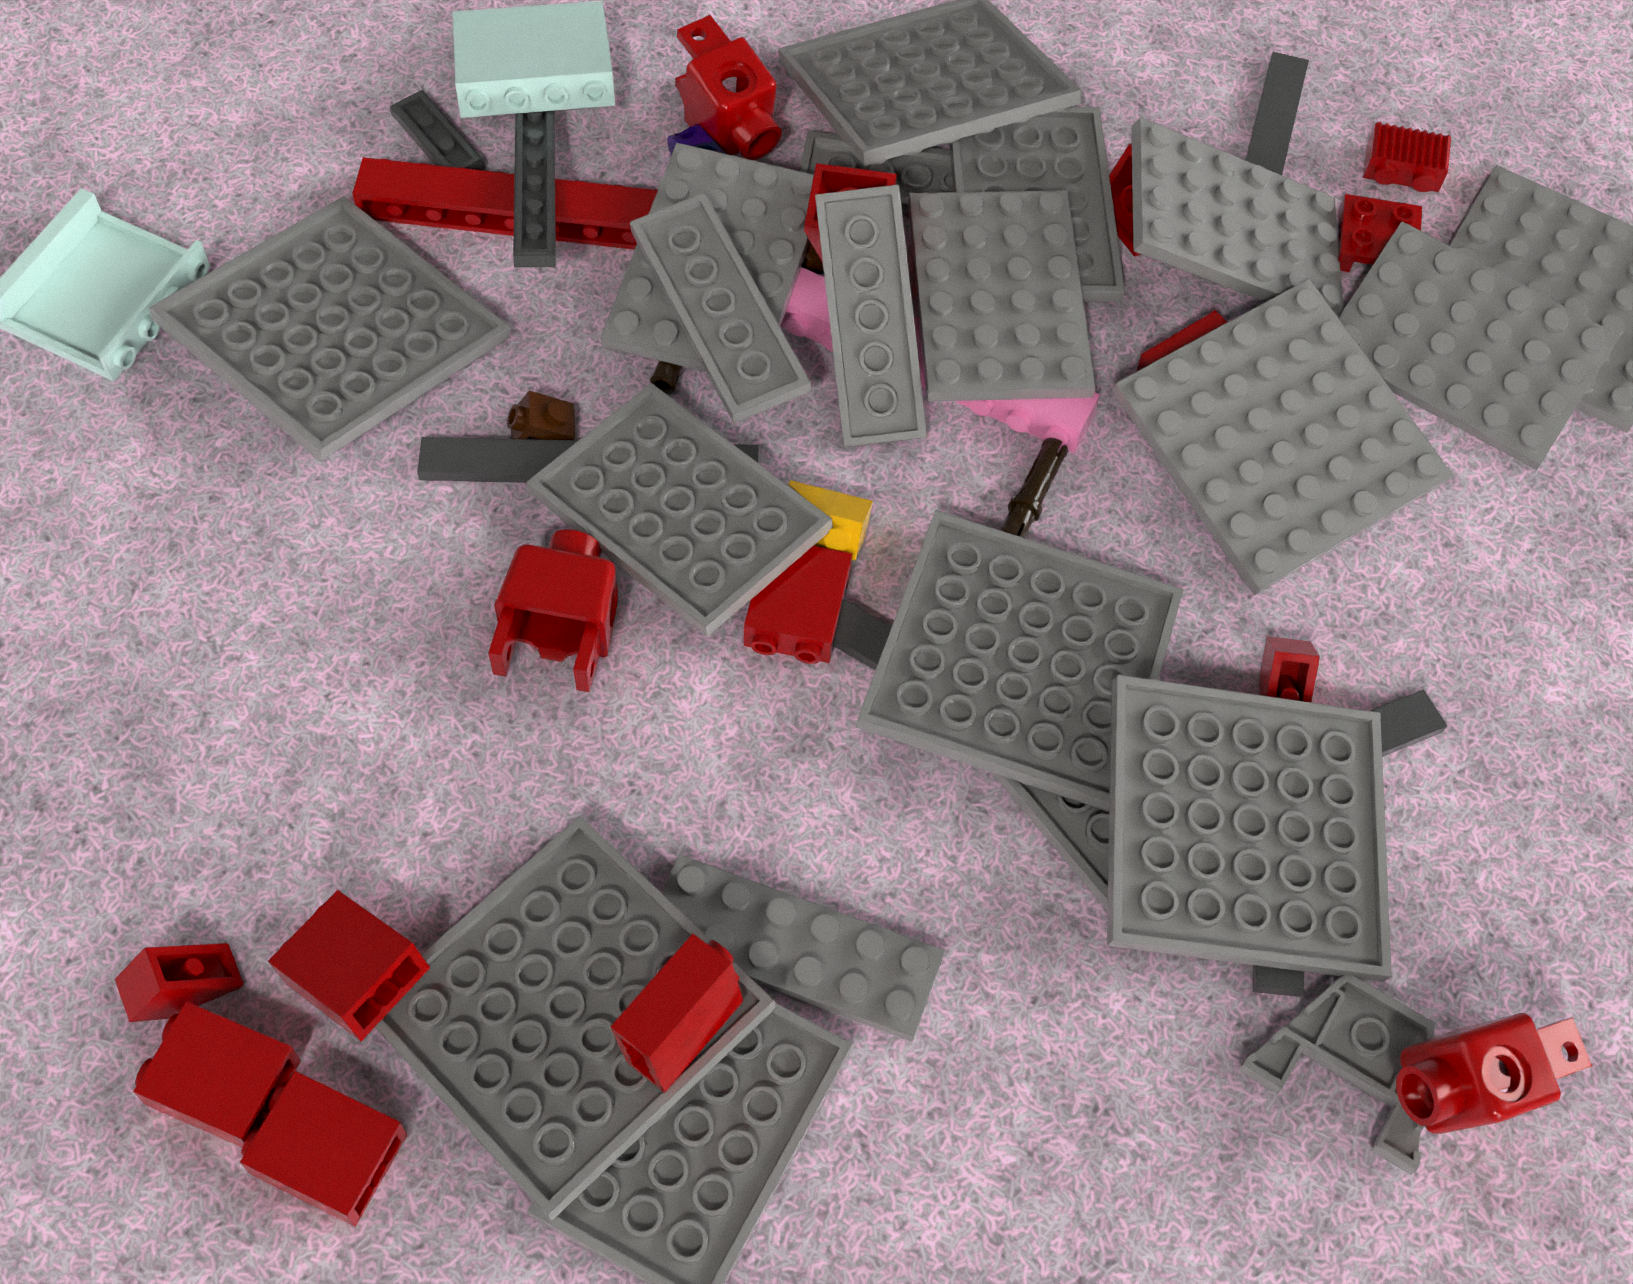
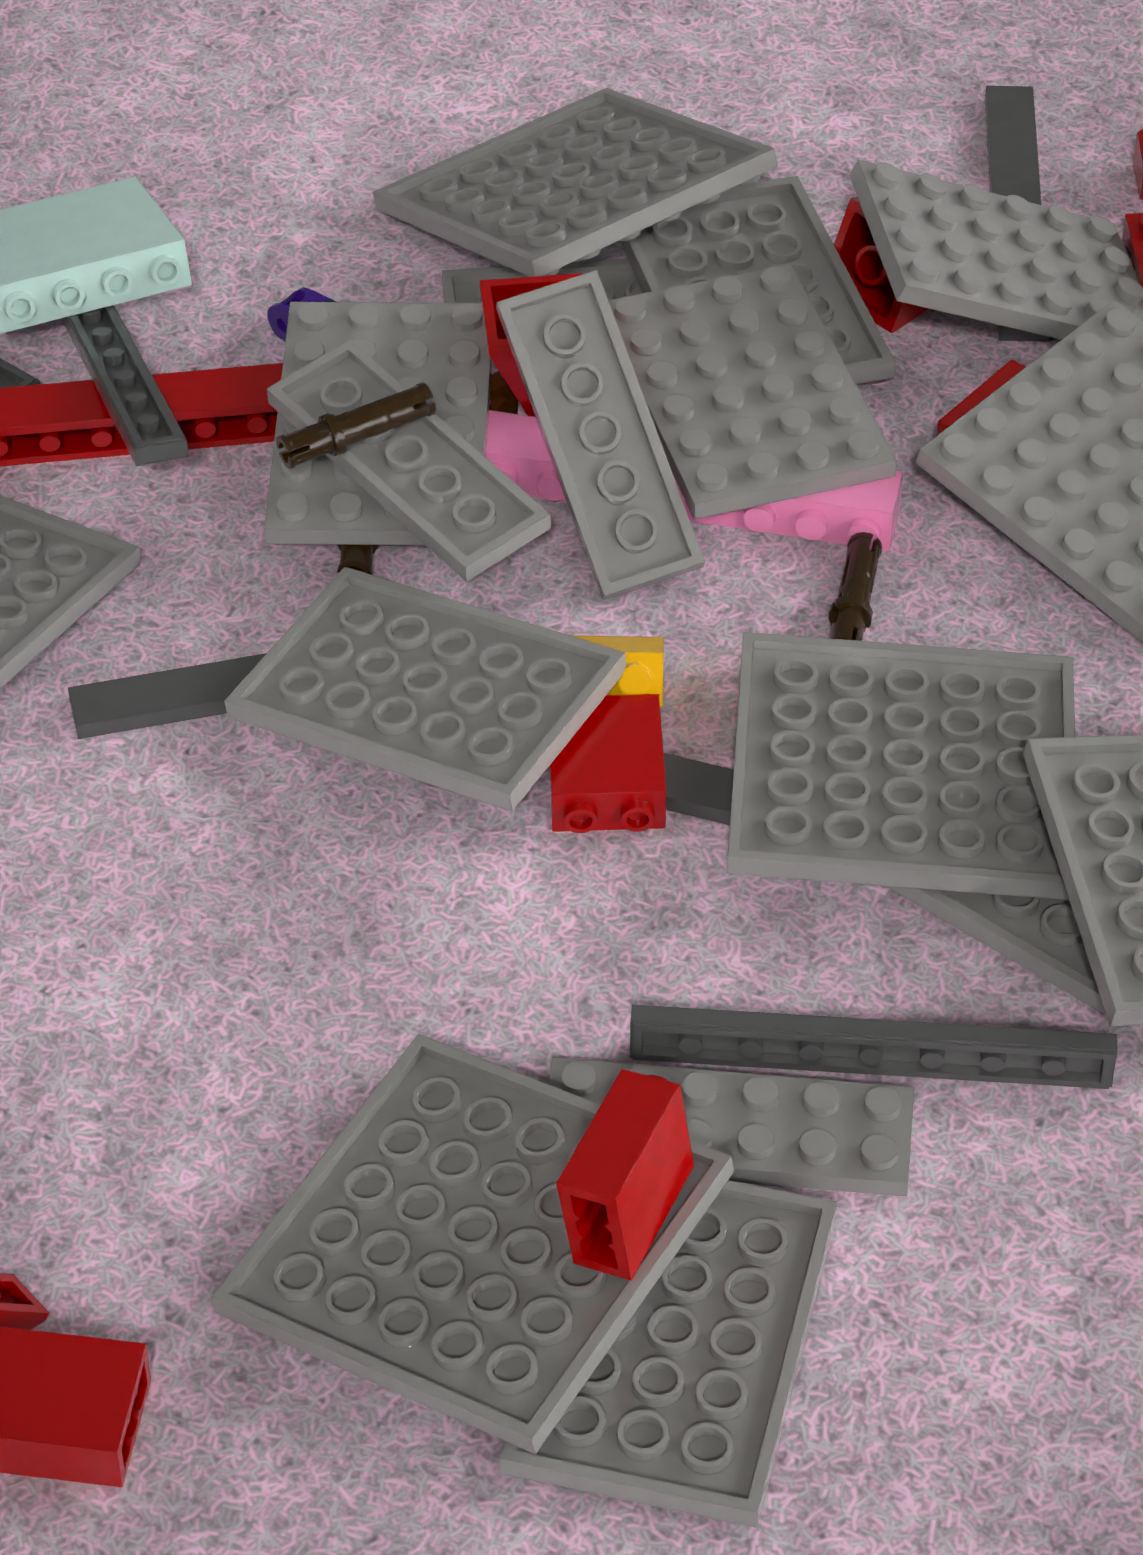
camera: 10 degrees left, 15 degrees down
(323, 1147) = (218, 1451): red brick -> none
(349, 964) = (185, 1247): red brick -> none
(542, 418) = (213, 635): reddish brown bracket -> none
(558, 603) = (311, 820): red piece -> none
(683, 273) = (335, 433): none -> dark brown pin
(737, 119) = (341, 262): red piece -> none
(924, 908) = (873, 1046): none -> dark grey tile

